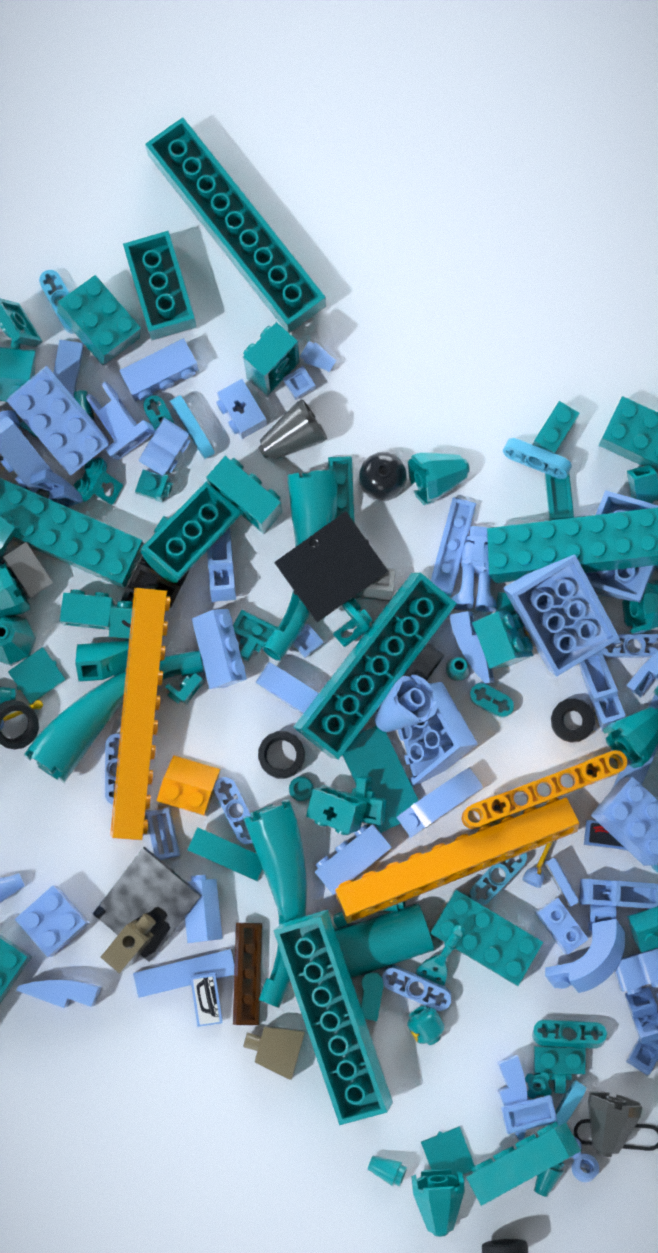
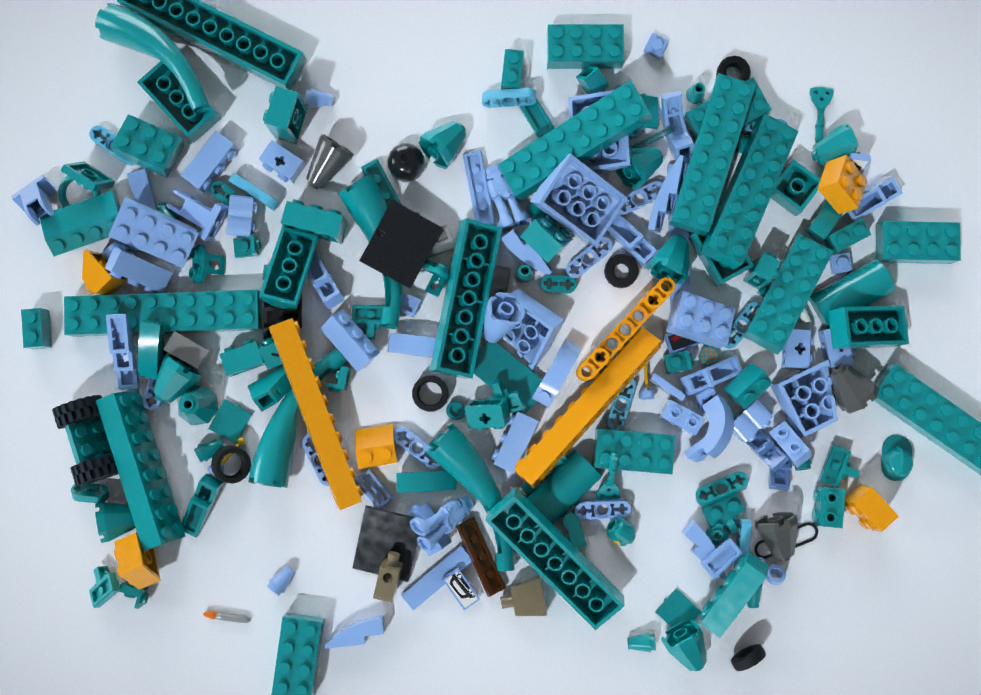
camera: 30 degrees left, 5 degrees up
(52, 921) = (326, 587): light blue brick -> none
(59, 489) = (180, 281): medium blue slope -> none
(148, 188) = (137, 33): none -> teal brick
(231, 908) = (447, 517): none -> light blue piece
(299, 383) = (314, 123): light blue plate -> none
(537, 696) = (581, 271): none -> light blue beam
(589, 858) = (678, 361): none -> teal bracket
(628, 869) = (708, 356): none -> tile

